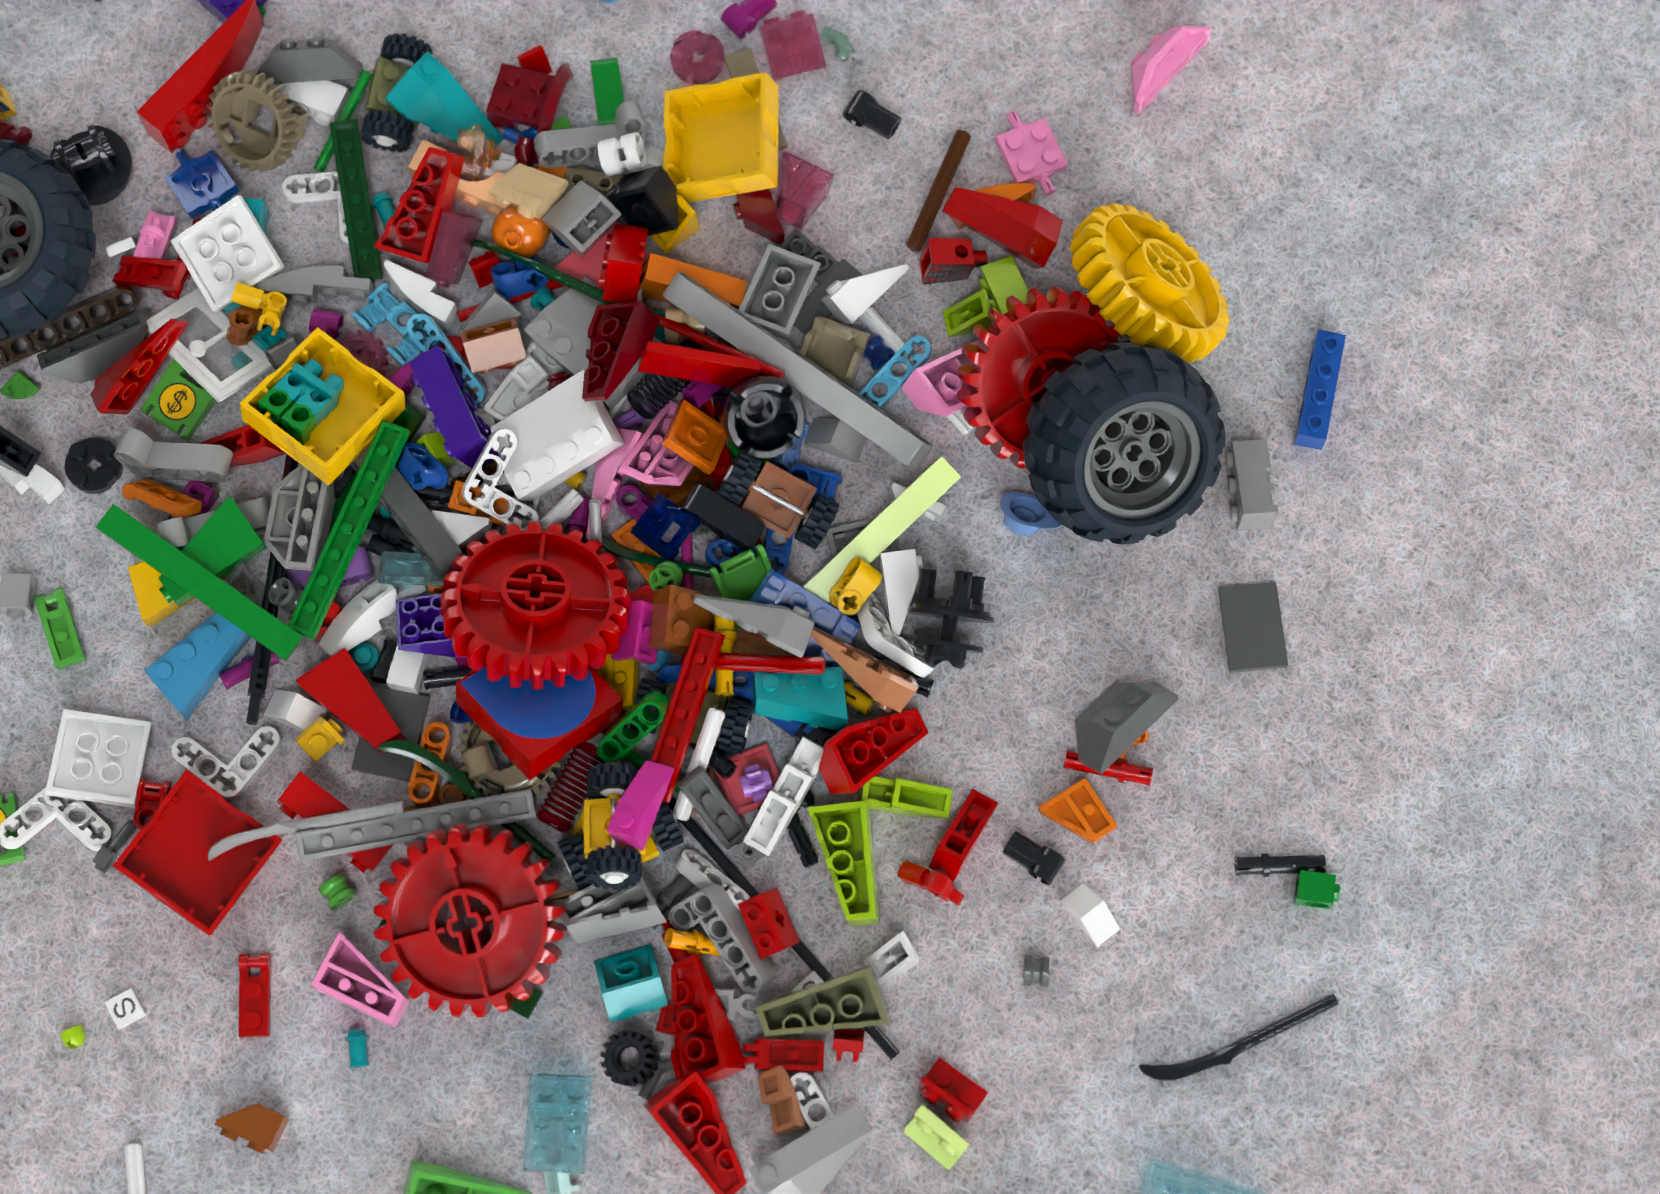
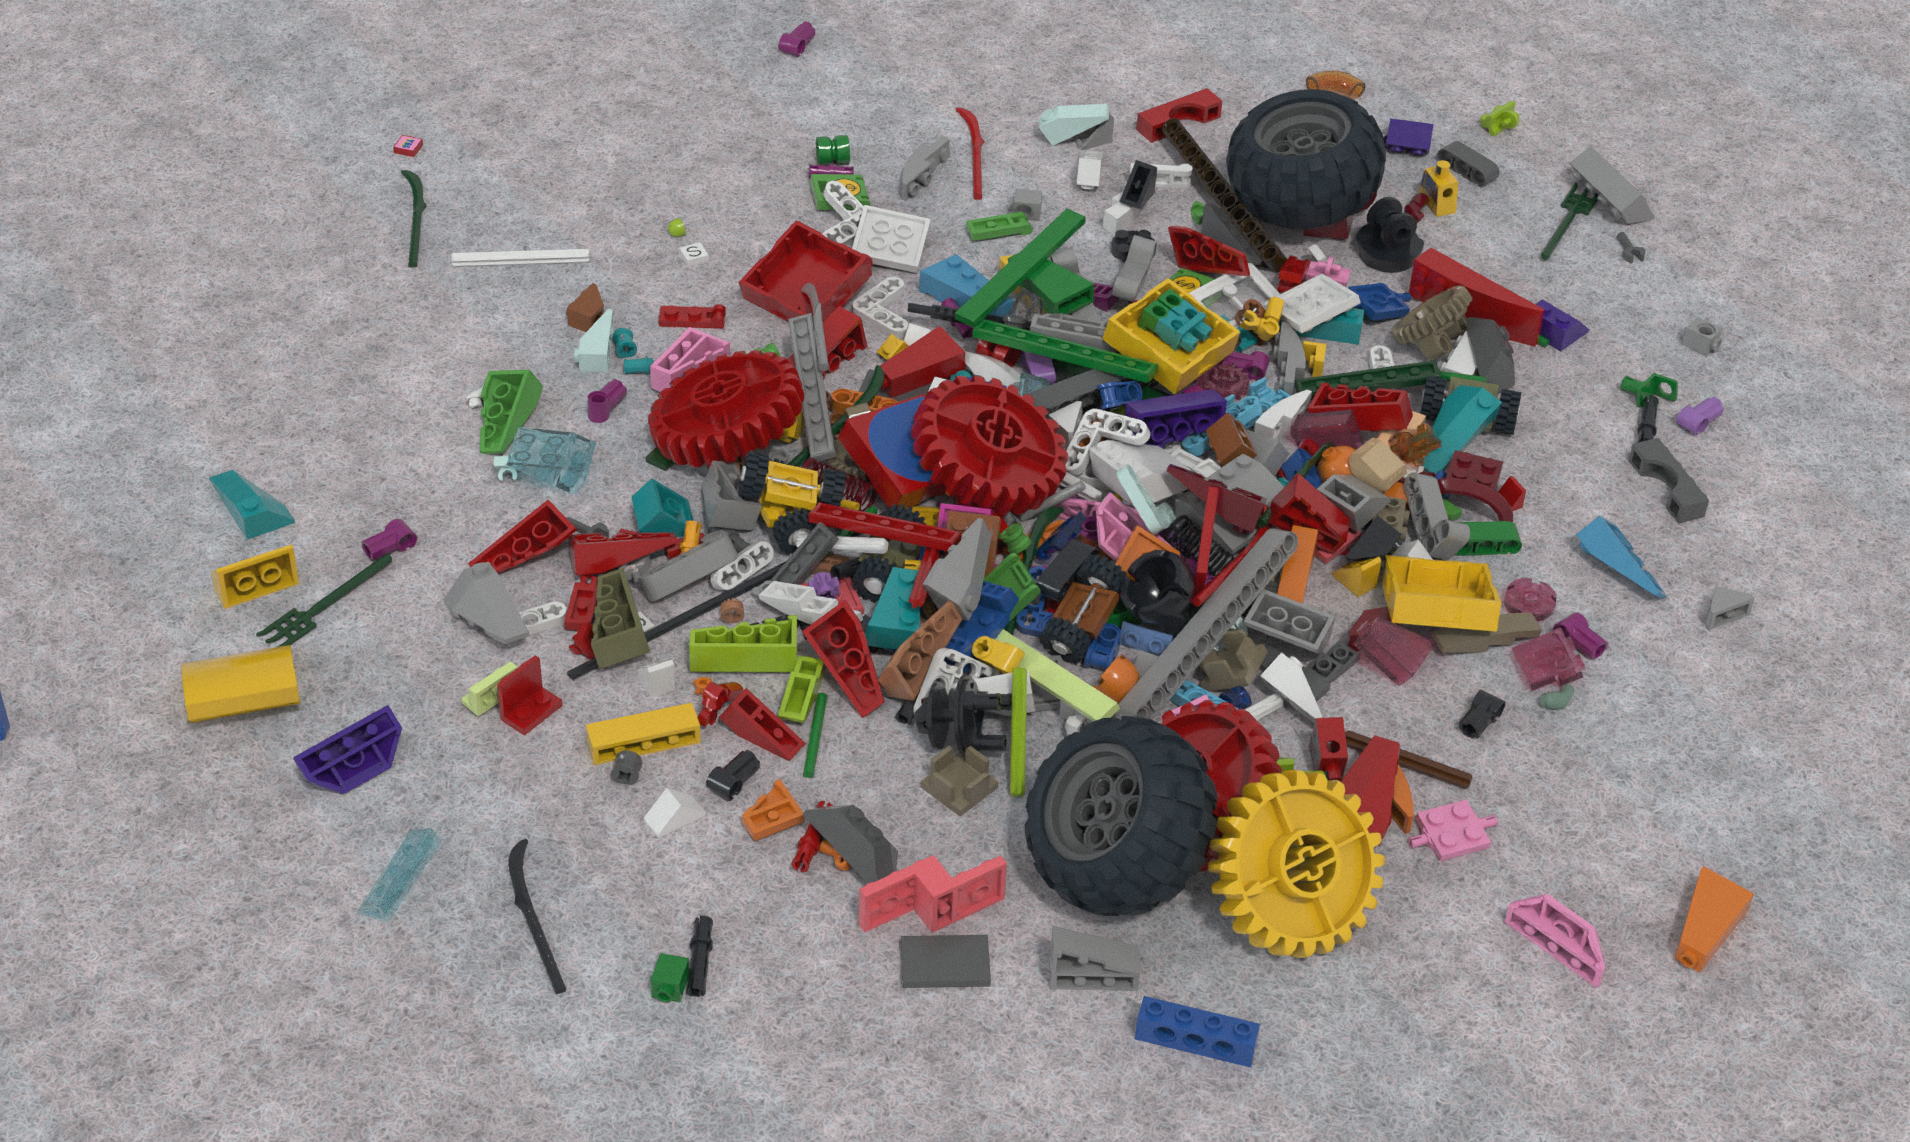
camera: 90 degrees right, 30 degrees down
(162, 498) = (1100, 268): orange plate -> none
(311, 254) = (1315, 356): none -> yellow bracket
(324, 1064) = (628, 337): none -> teal bush
(331, 1105) = (595, 345): none -> light aqua slope
(426, 1079) = (603, 401): none -> magenta piece
(613, 156) = (1416, 521): white wheel -> none
(624, 736) = (877, 499): green beam -> none
(636, 426) = (1154, 517): none -> light aqua beam
(640, 805) = (800, 484): dark pink slope -> none
(646, 1062) = (598, 507): black tyre -> none
(768, 923) = (711, 589): red brick -> none
(779, 1093) = (551, 594): nougat slope -> none
(785, 885) = (729, 605): none -> nougat bush
(868, 470) = (1118, 679): none -> orange cylinder
(898, 906) = (700, 684): none -> orange piece
(962, 779) = (815, 735): none -> green bar
(965, 563) = (1018, 732): none -> lime axle
(984, 959) = (643, 733): none -> yellow brick
(1018, 625) = (959, 780): none -> dark tan panel
(1189, 638) = (932, 893): none -> coral bracket

